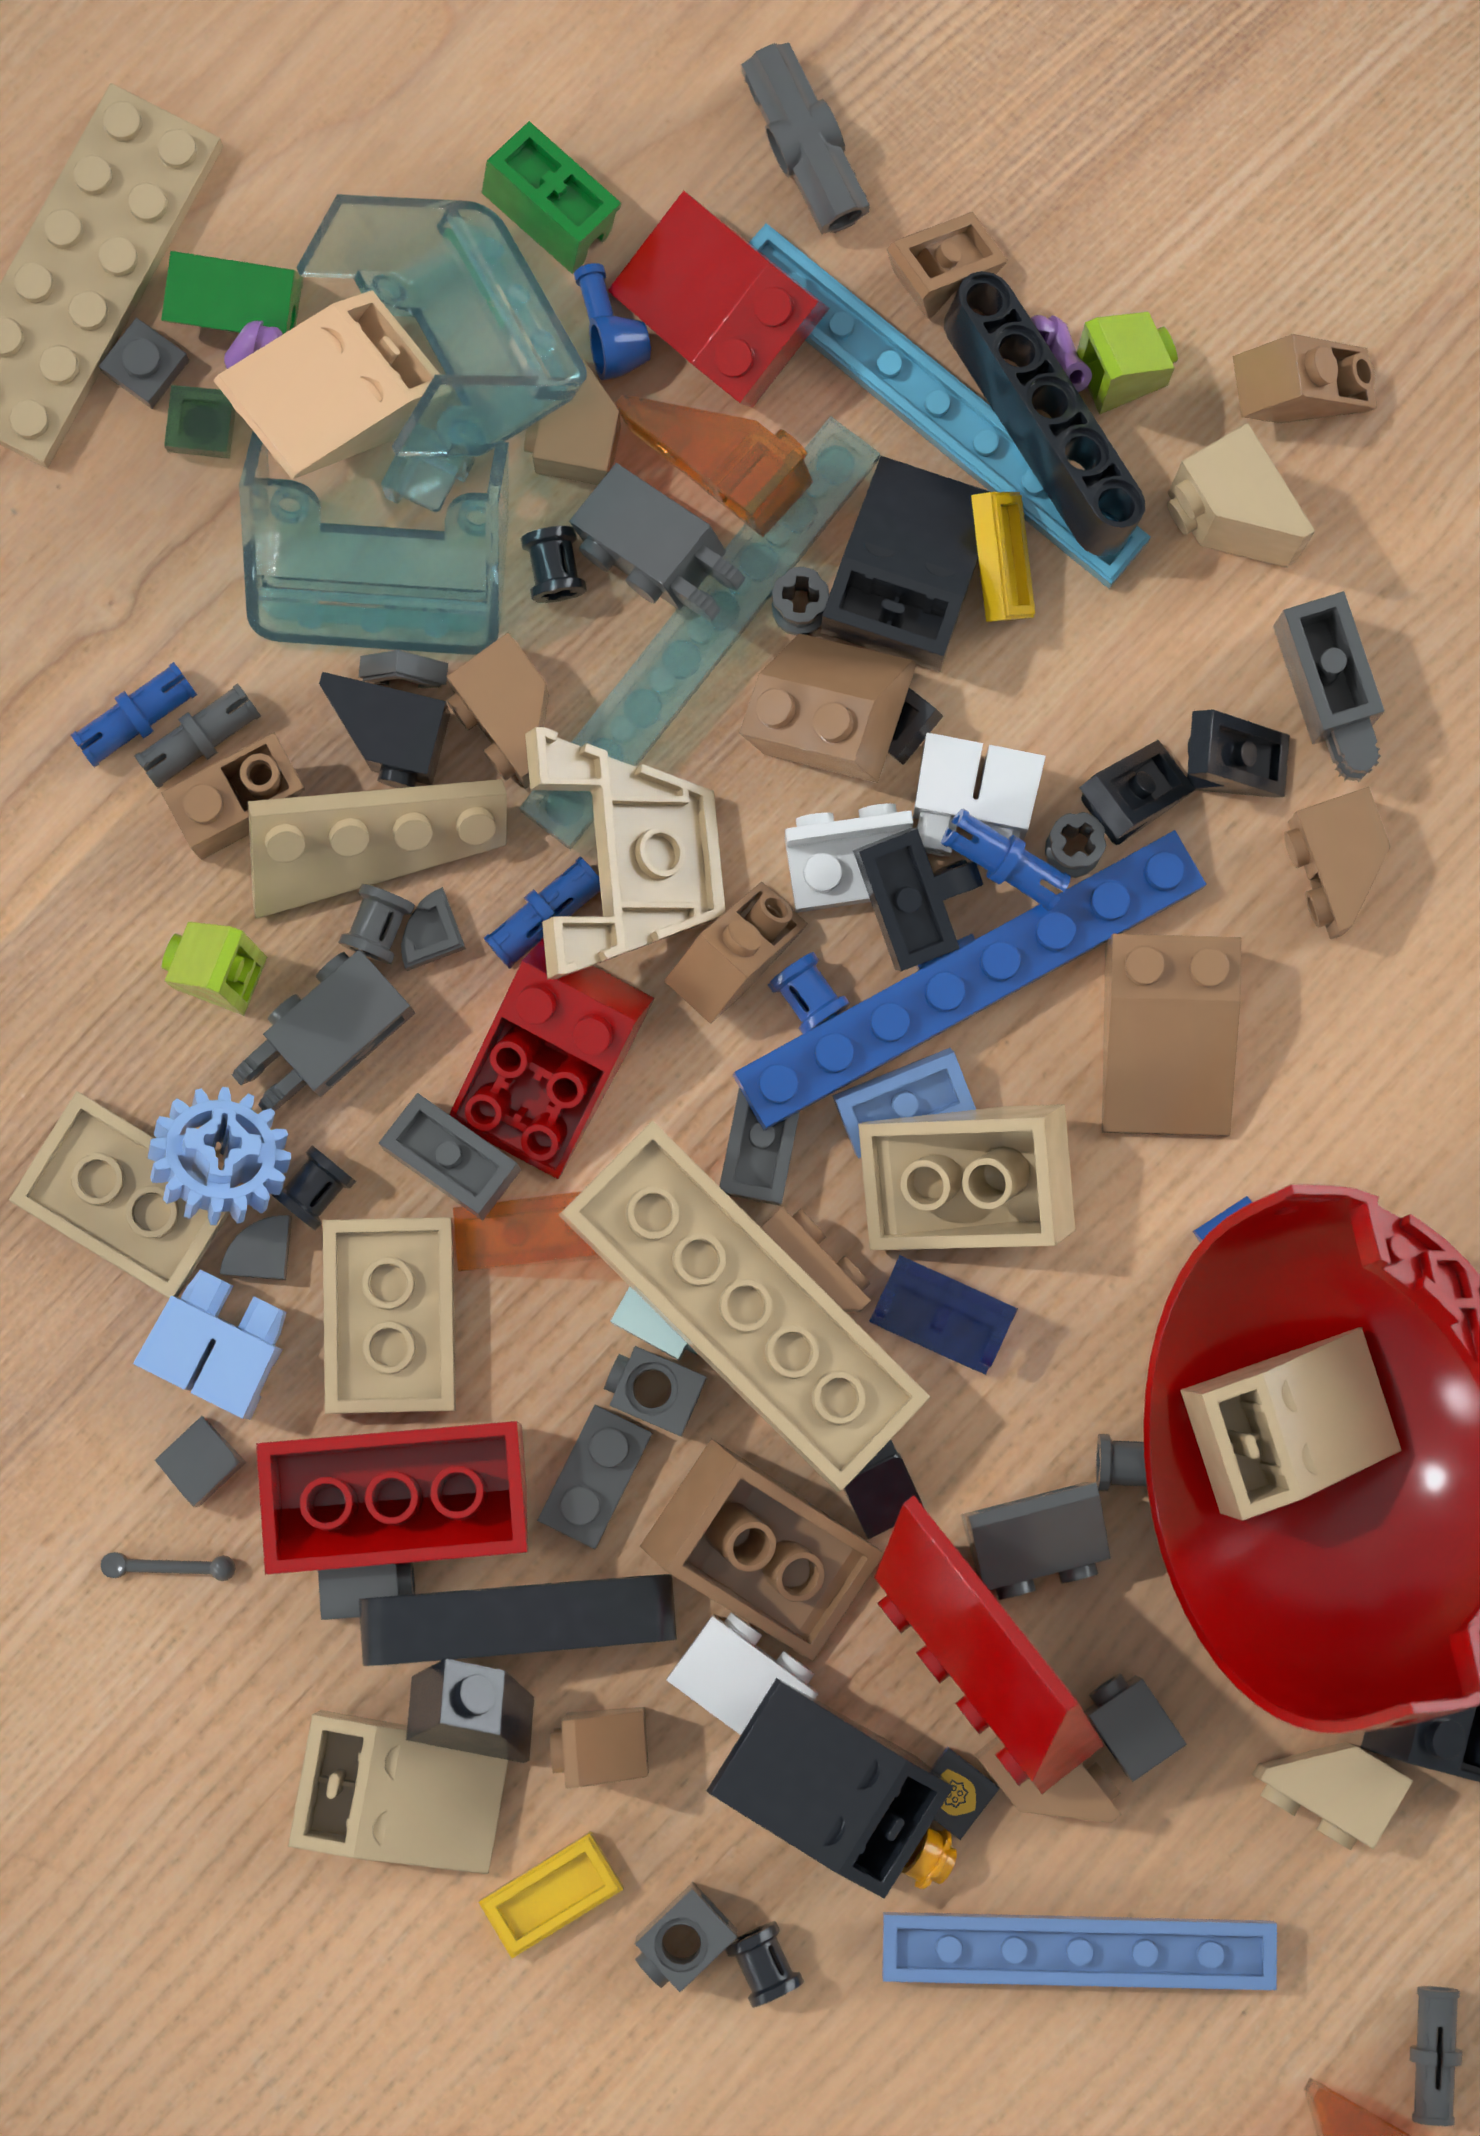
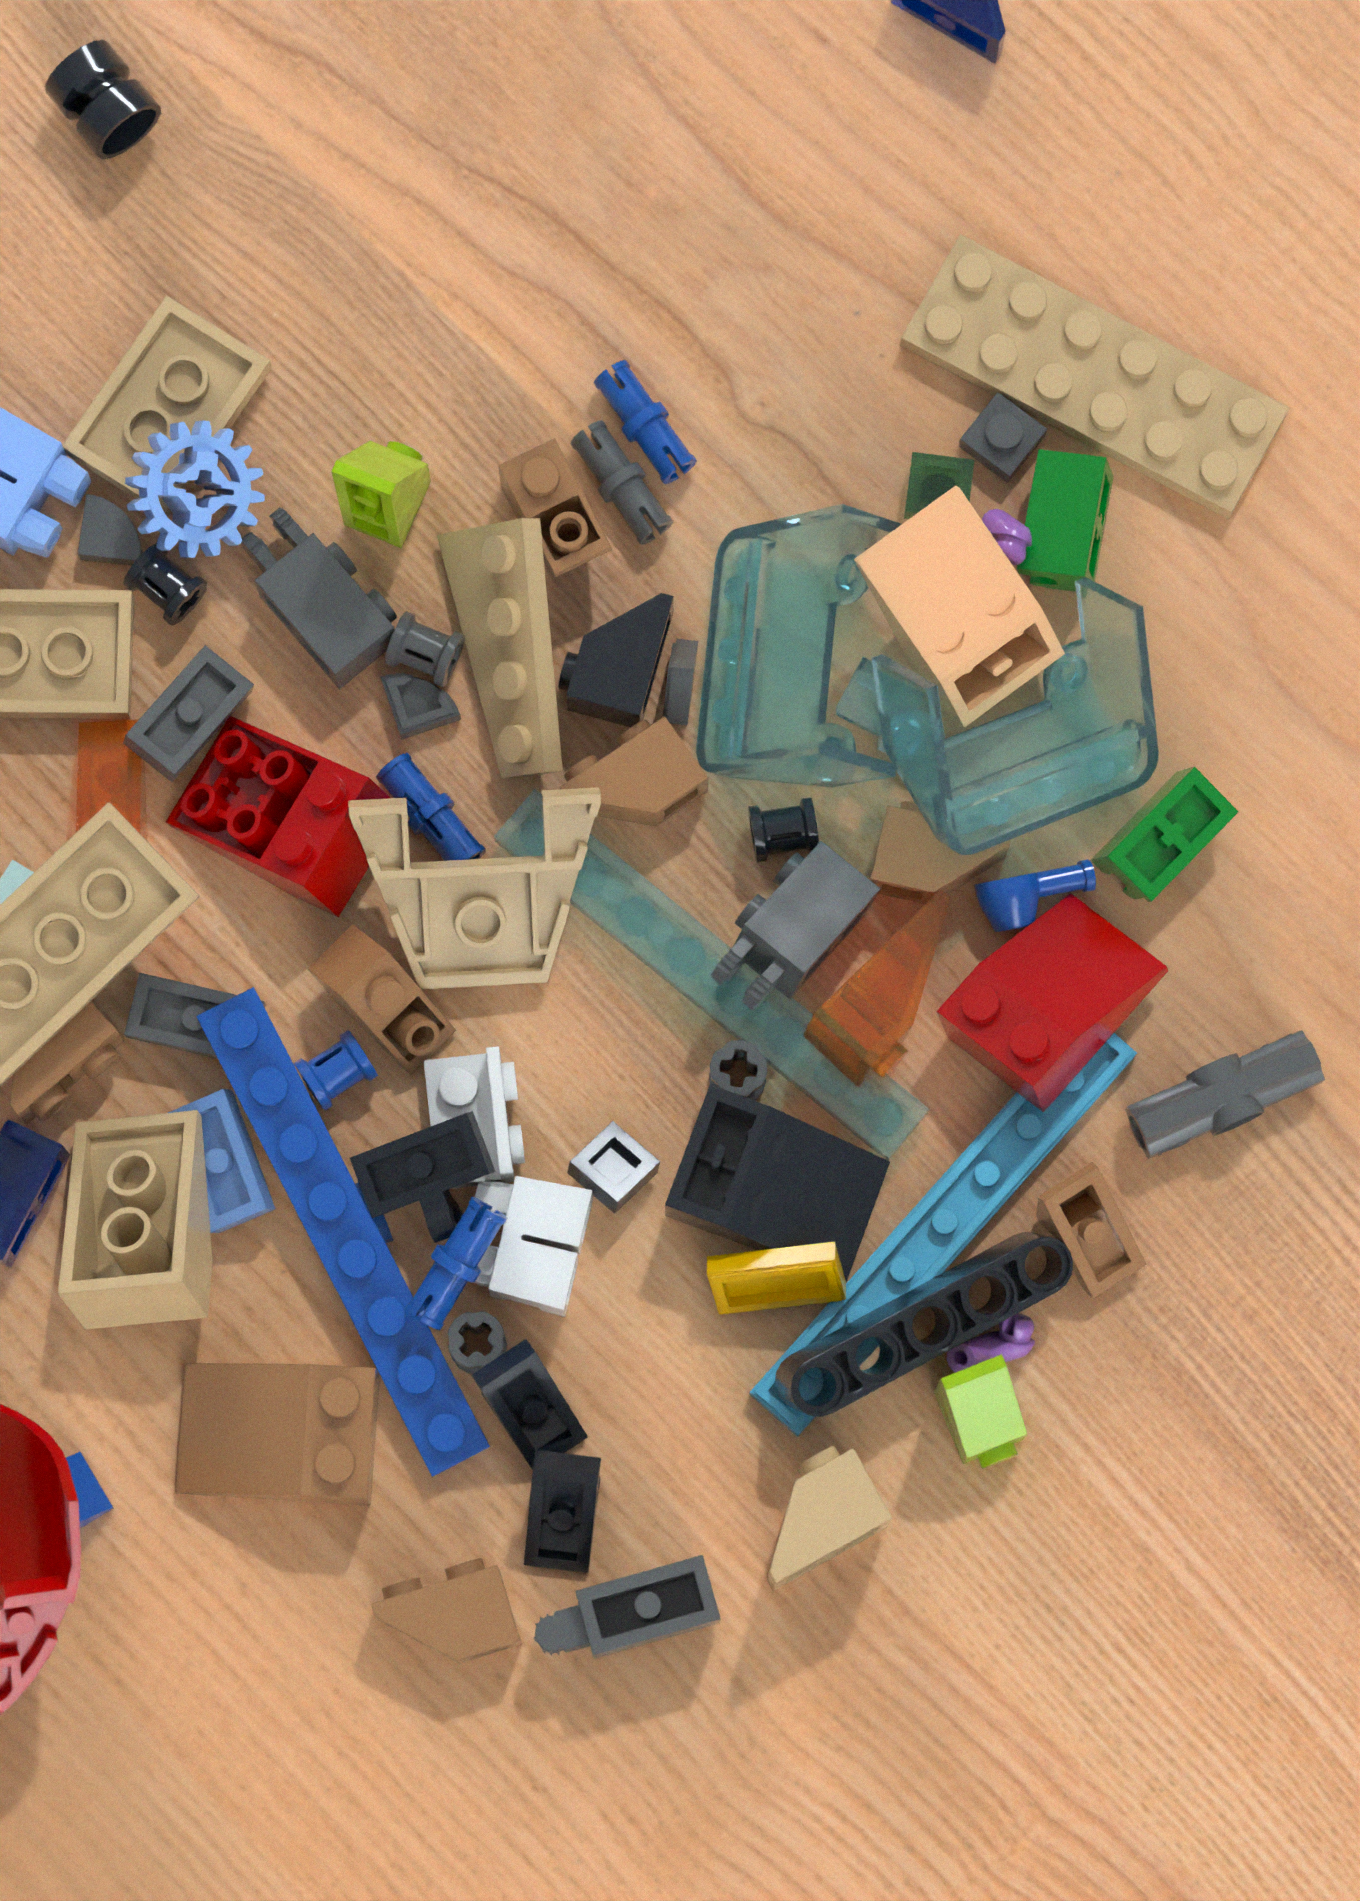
camera: 90 degrees right, 5 degrees down
(828, 706) = (627, 1095): medium nougat slope -> none
(1304, 380) = (958, 1601): medium nougat slope -> none

